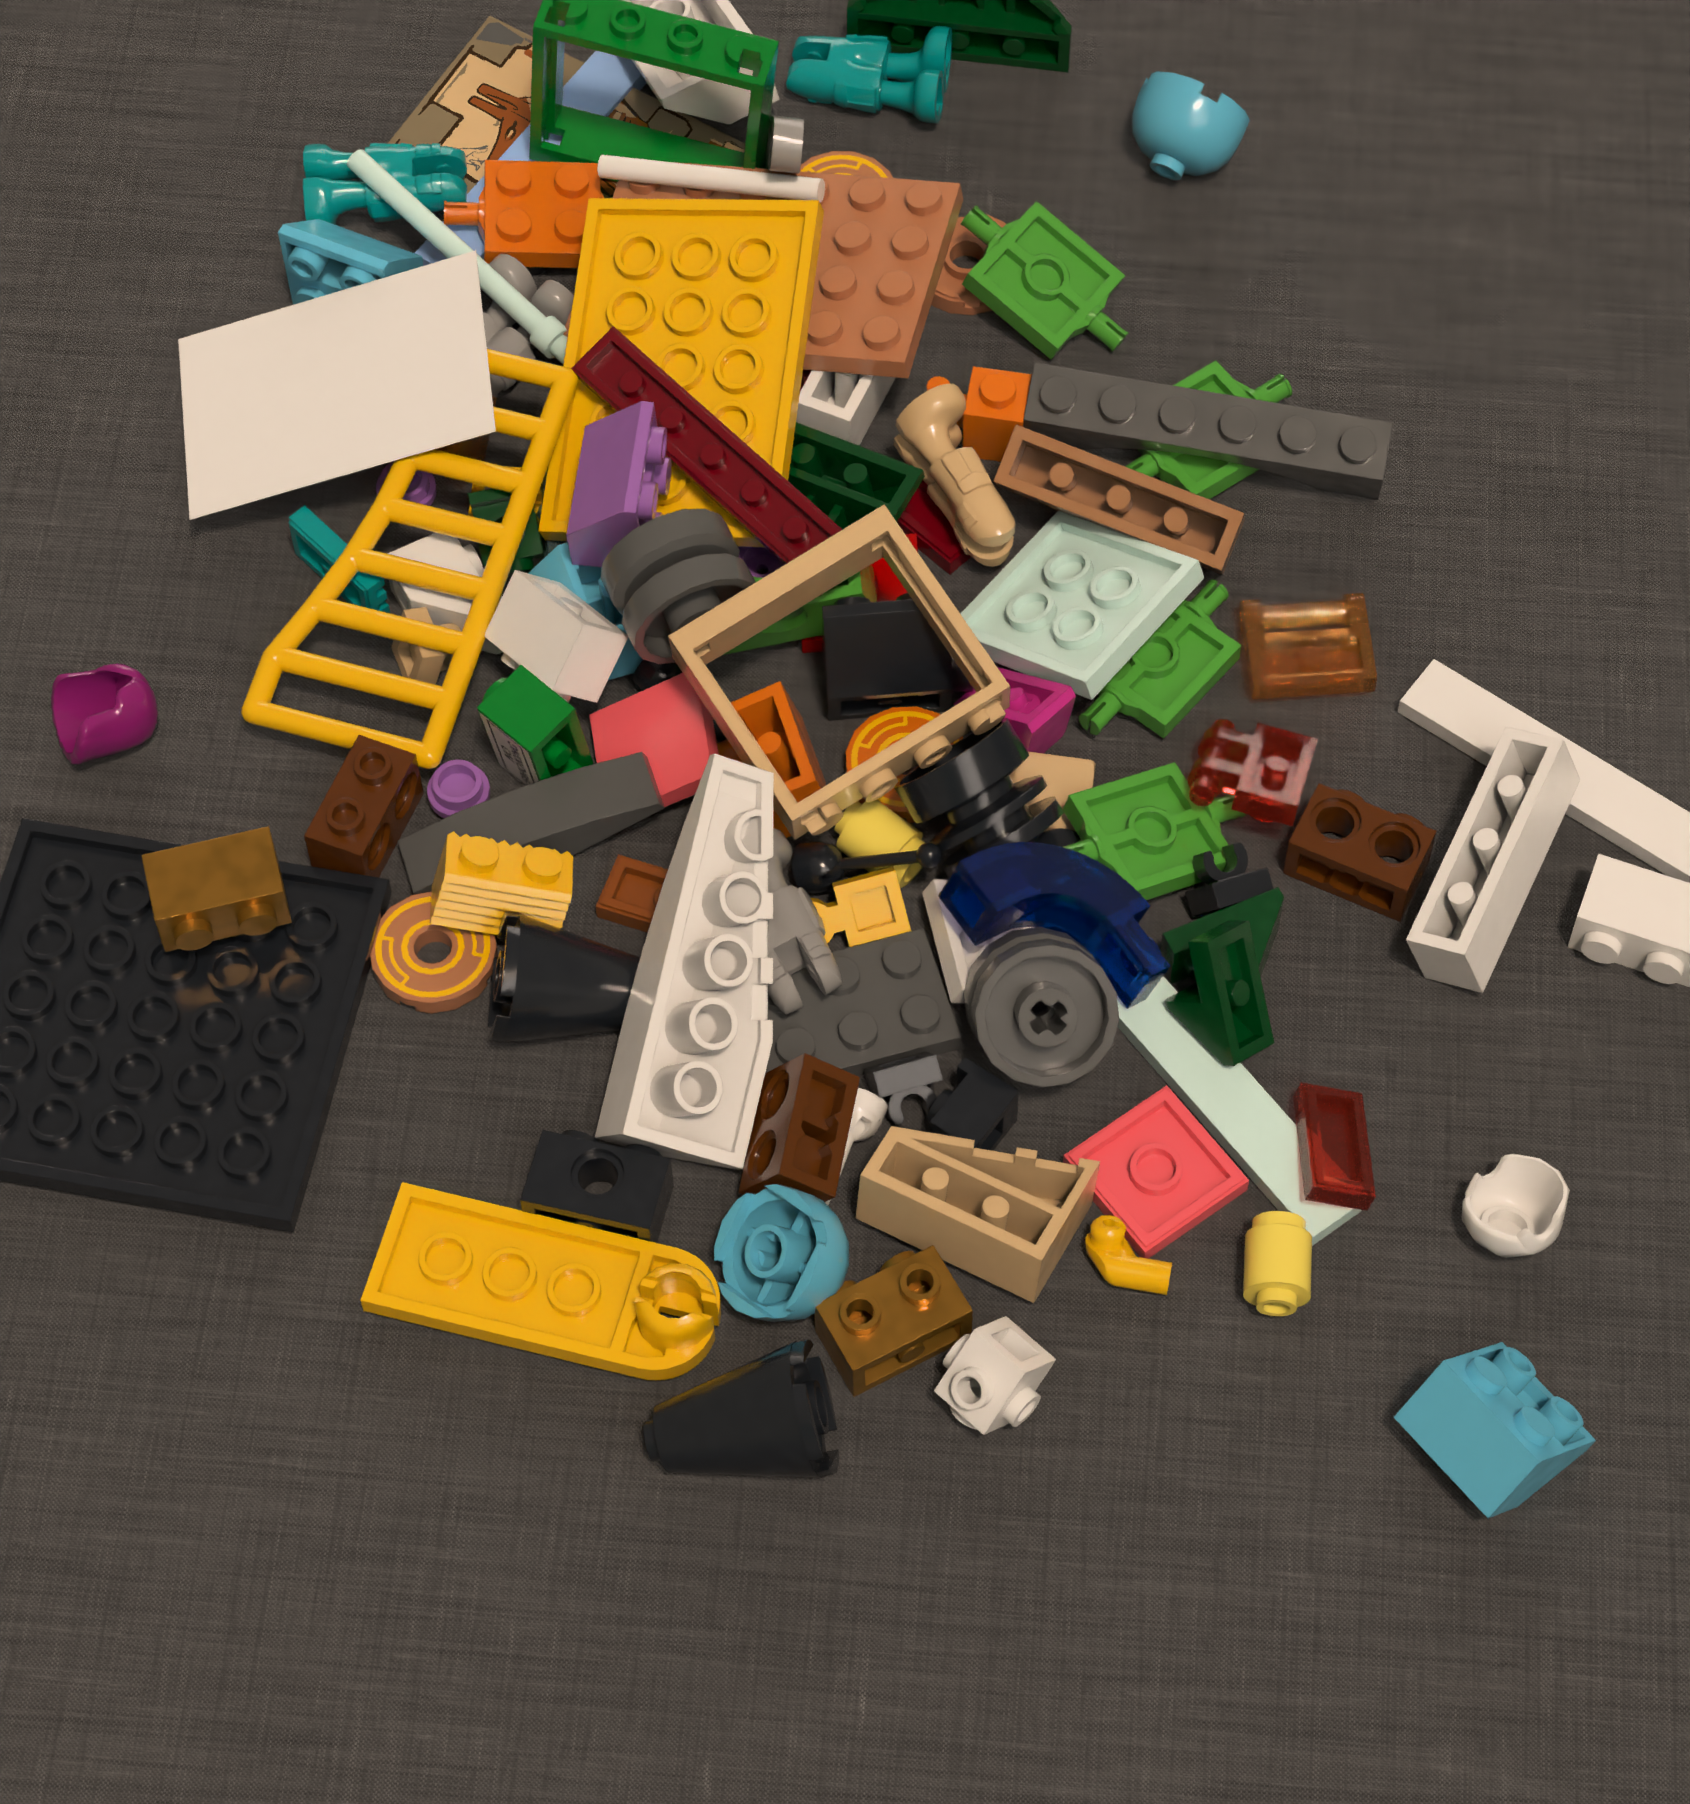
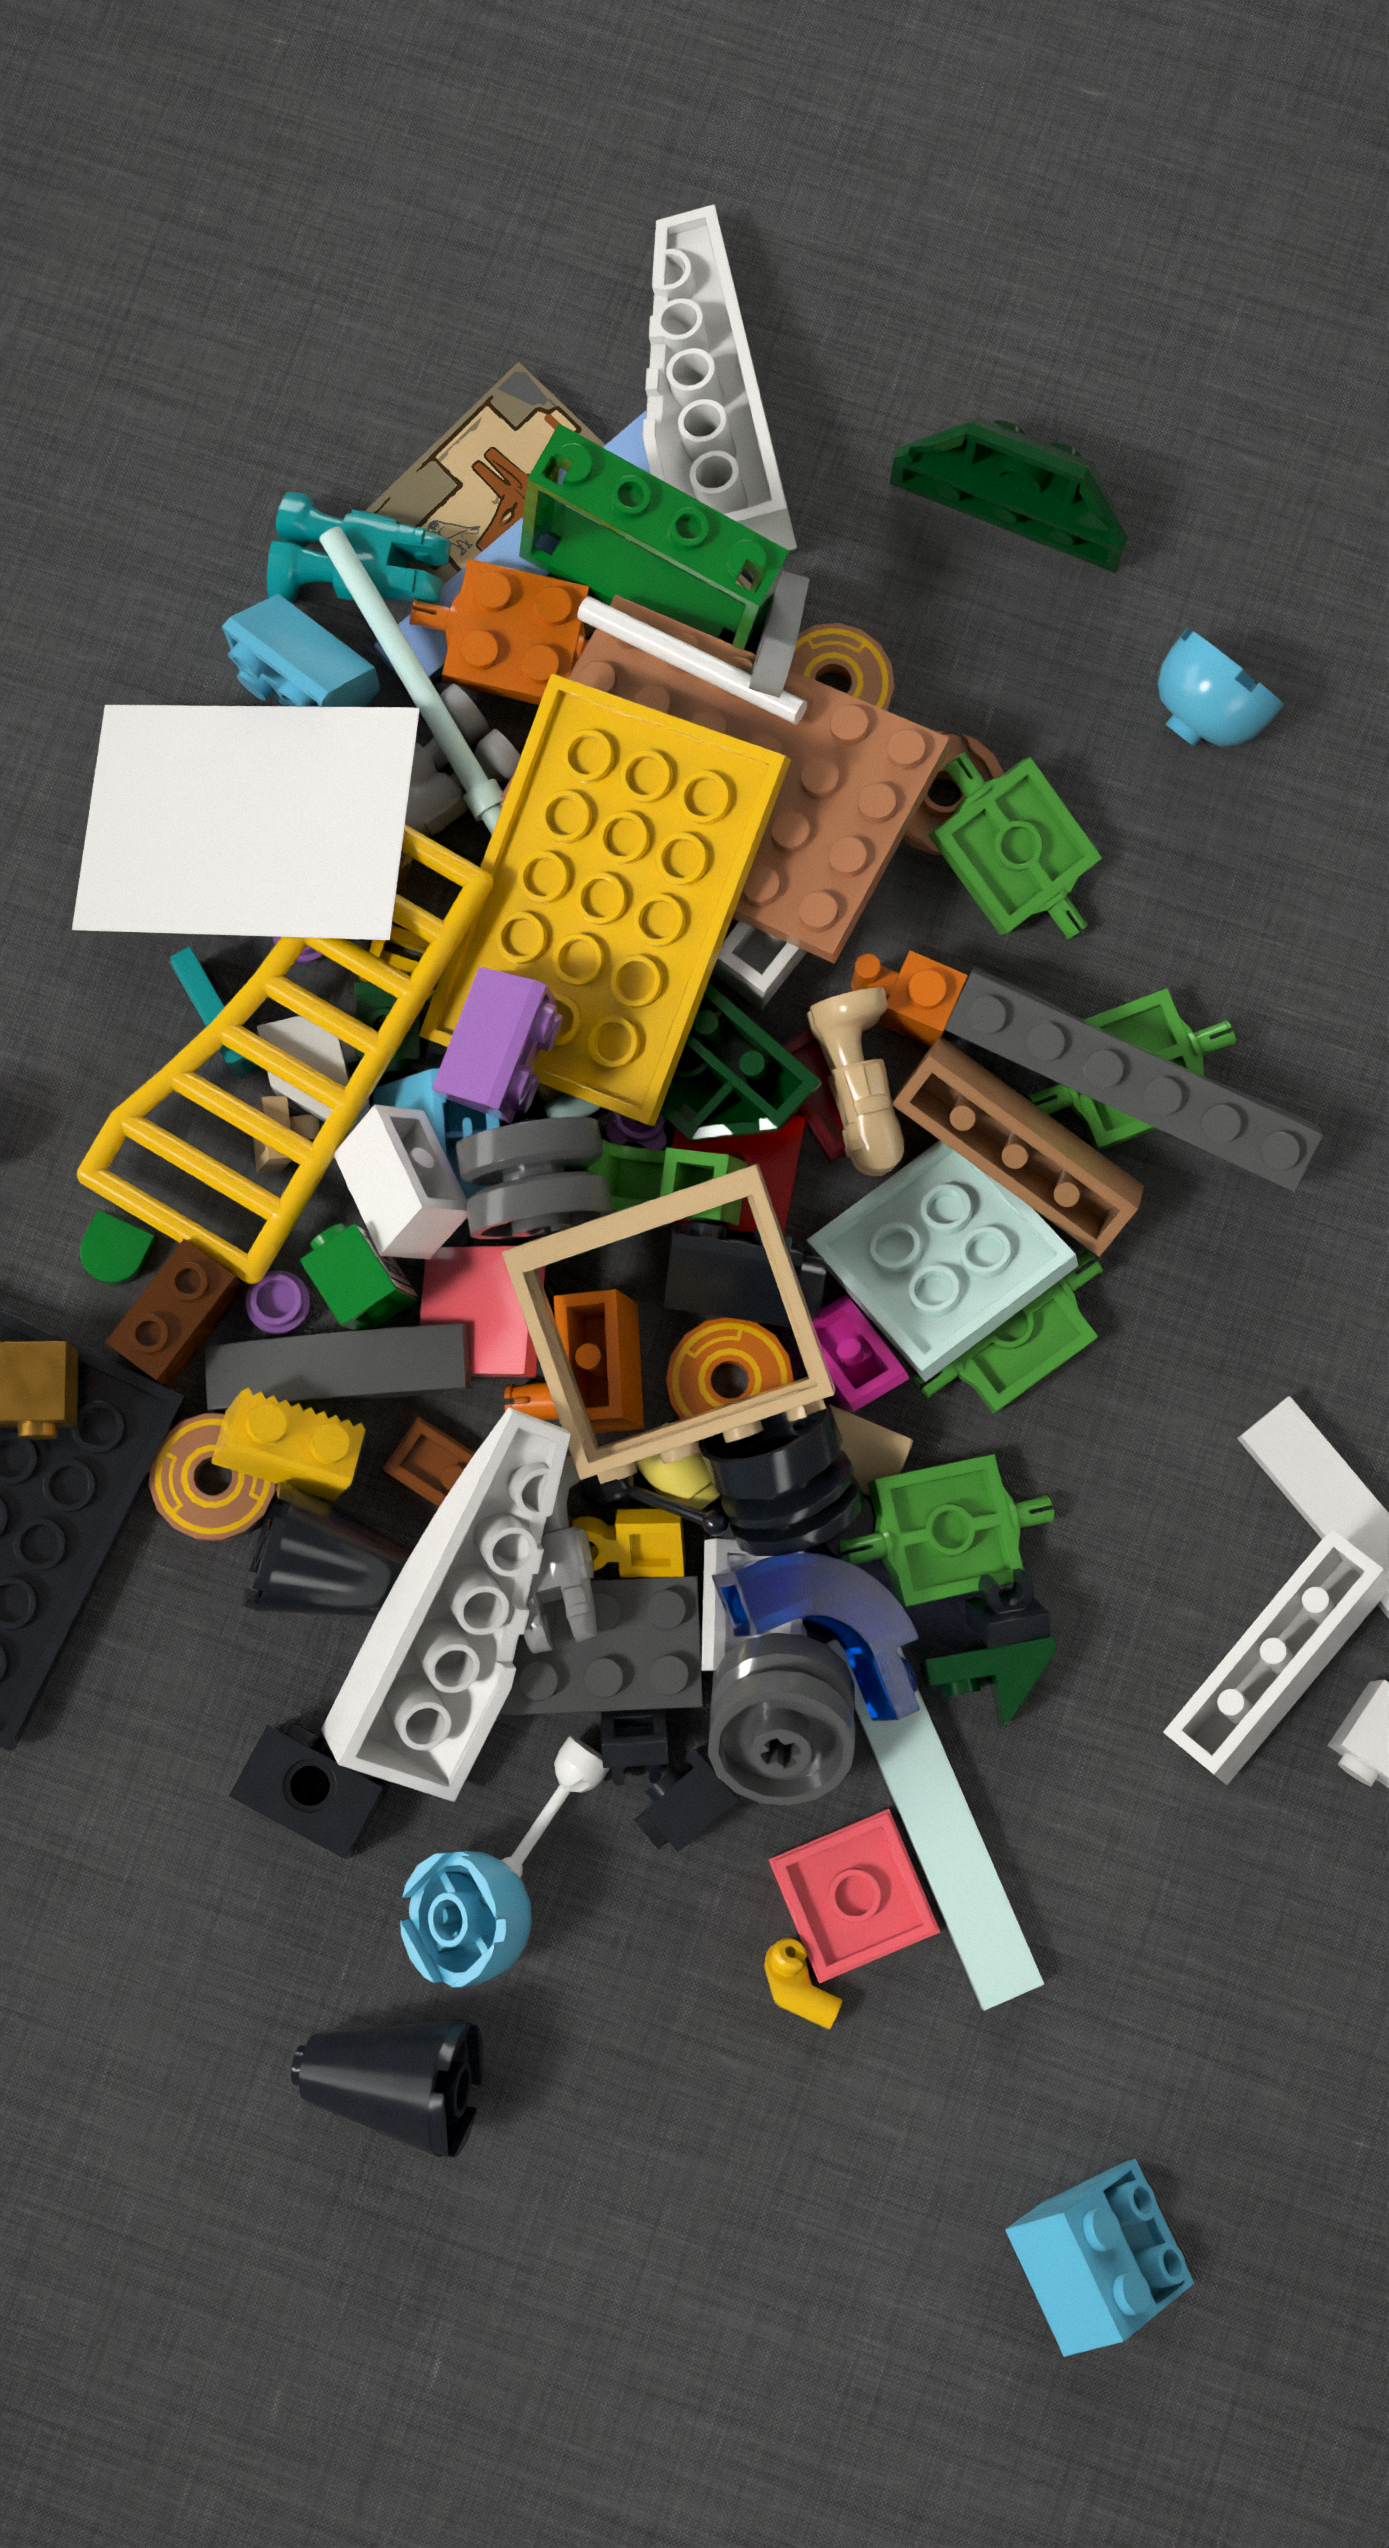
camera: 10 degrees right, 20 degrees up
(291, 782) = (115, 1250): none -> green tile
(543, 1285) = (234, 1873): yellow plate -> none
(707, 450) = (607, 1020): dark red tile -> none
(801, 1128) = (515, 1788): reddish brown brick -> none
(857, 69) = (891, 524): teal piece -> none
(893, 1319) = (558, 1997): pearl gold brick -> none
(977, 1206) = (670, 1909): tan wedge -> none
(994, 1376) = (637, 2091): white brick -> none
(1228, 1001) = (968, 1742): dark green slope -> none
(1259, 769) = (1088, 1497): clear red plate -> none
(1277, 1263) = (941, 2035): light yellow brick -> none
(1308, 659) = (1162, 1365): clear orange plate -> none
(1334, 1146) = (1031, 1922): clear red tile -> none
(1353, 864) = (1142, 1615): reddish brown brick -> none
(1516, 1206) = (1188, 2035): white hair -> none

